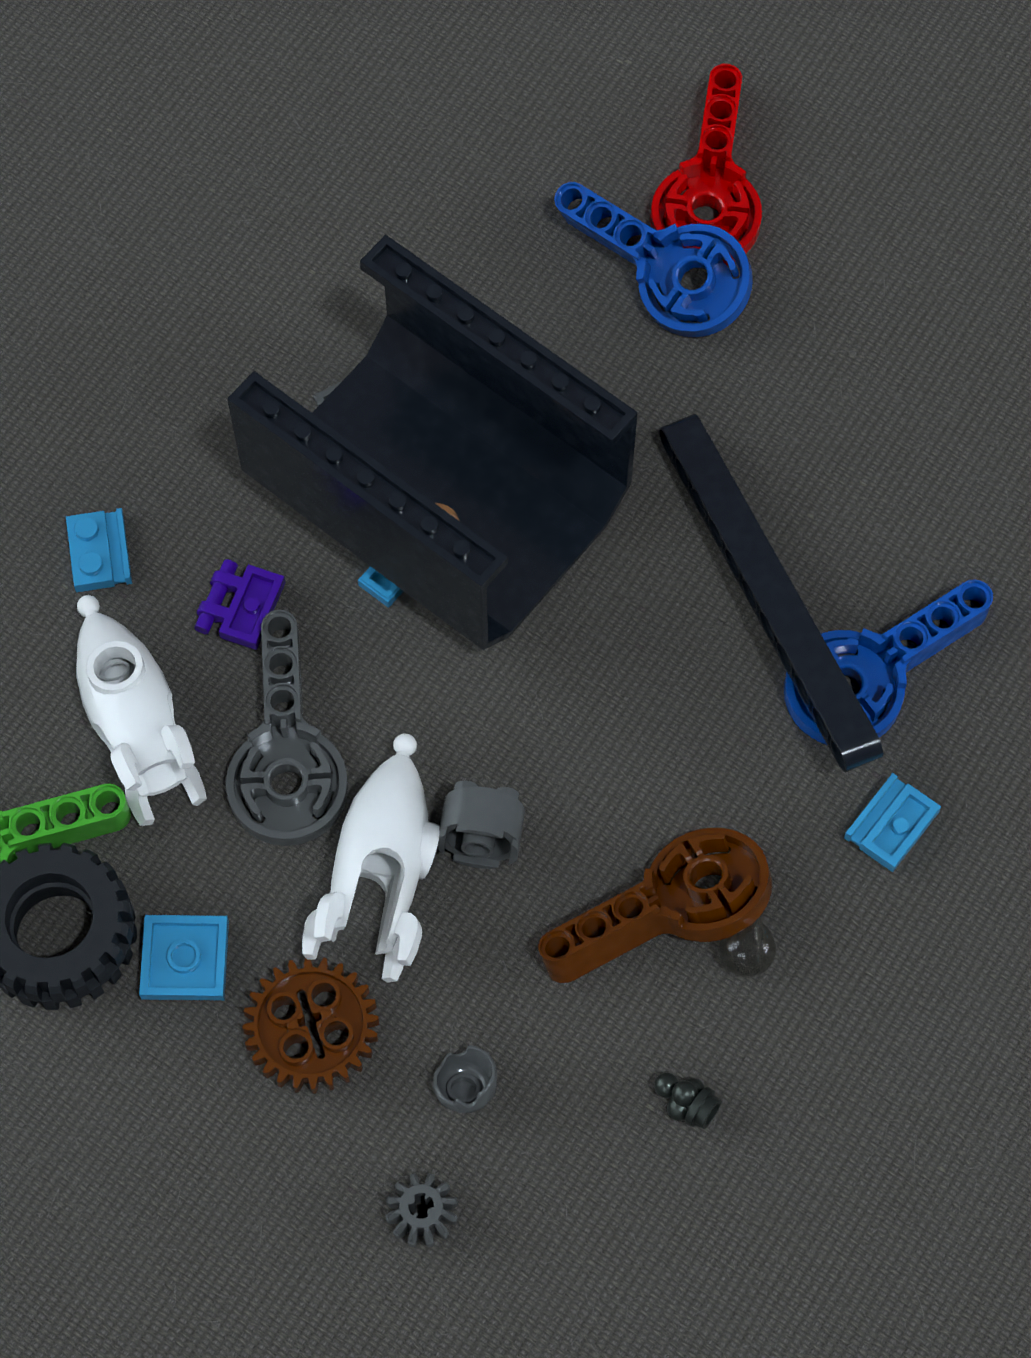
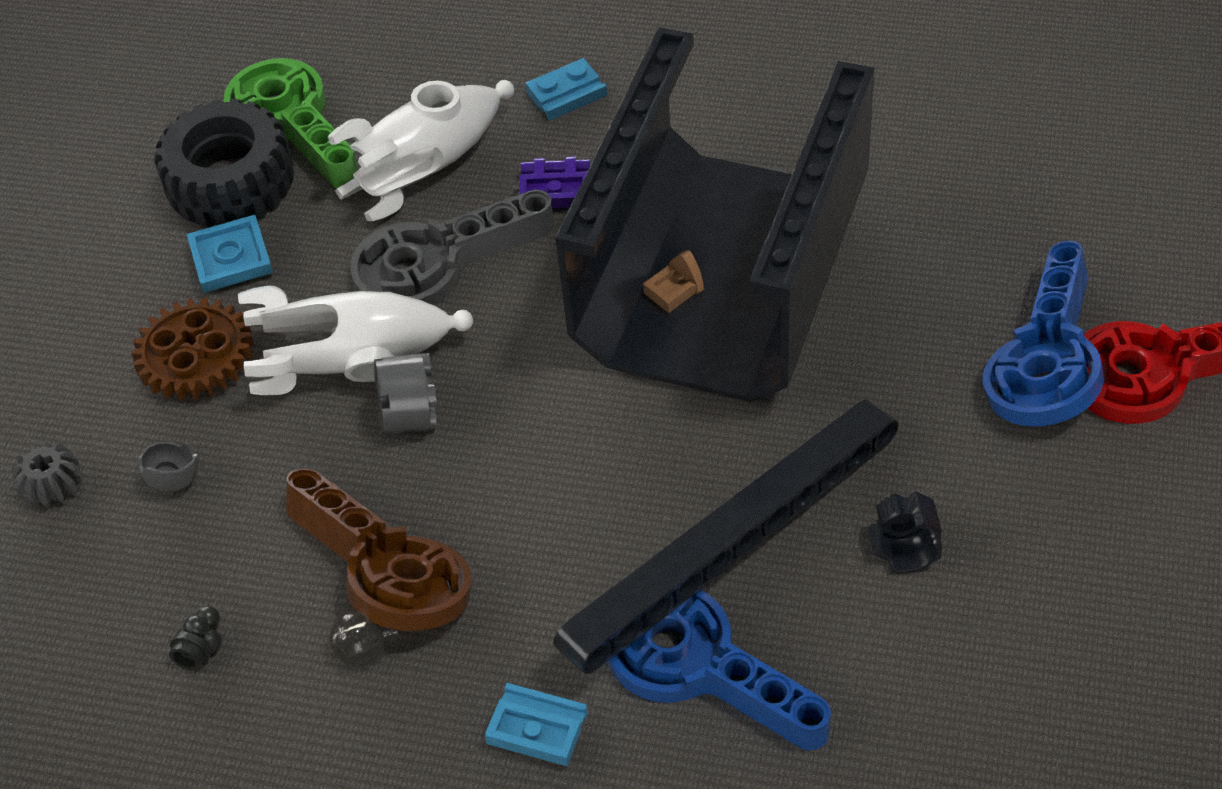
camera: 75 degrees right, 15 degrees down
(818, 453) = (907, 532): none -> black hair

